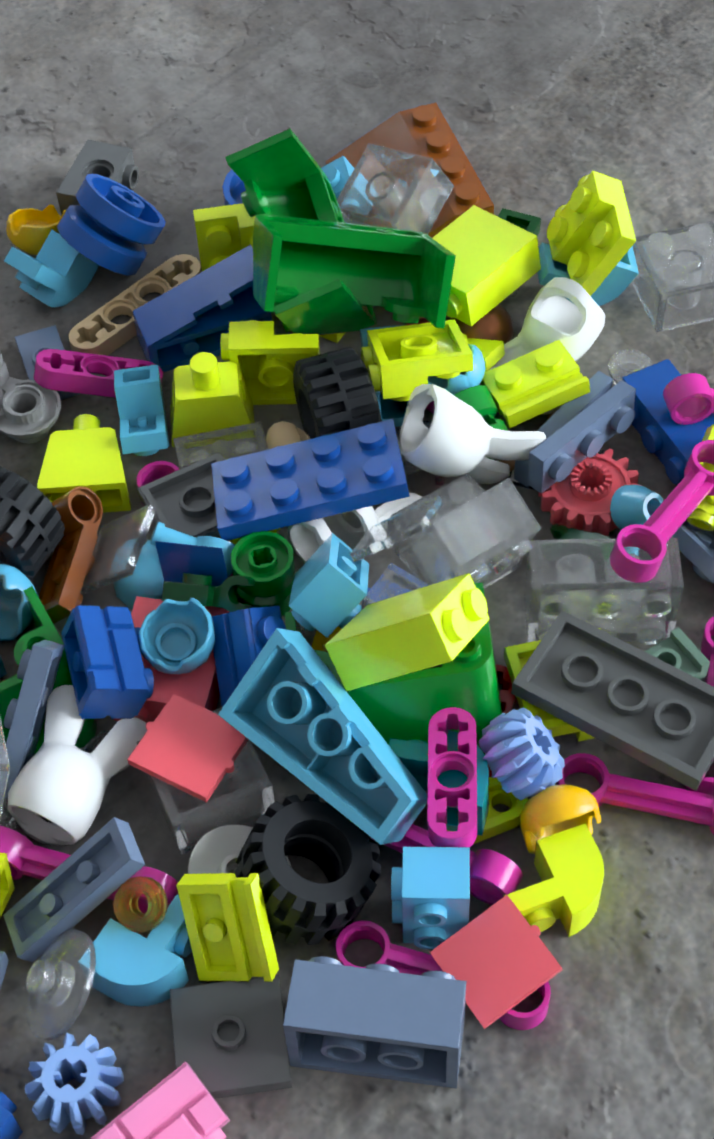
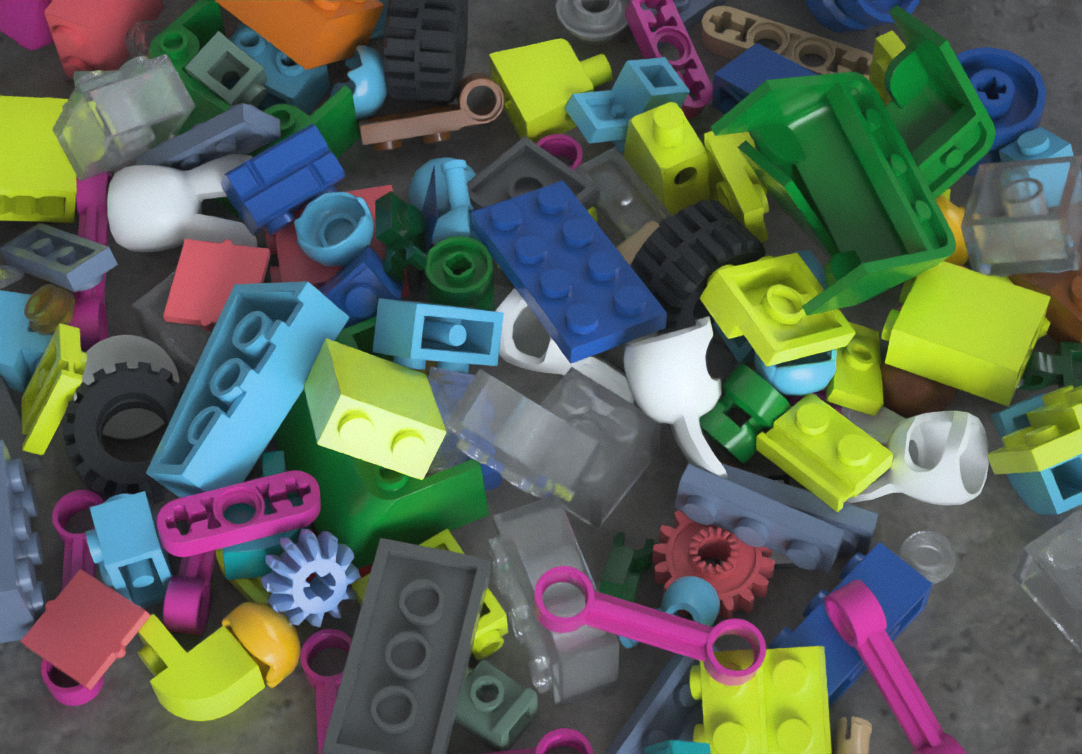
camera: 70 degrees right, 5 degrees up
(118, 548) = (455, 148): clear piece -> none
(397, 528) = (526, 367): clear piece -> none

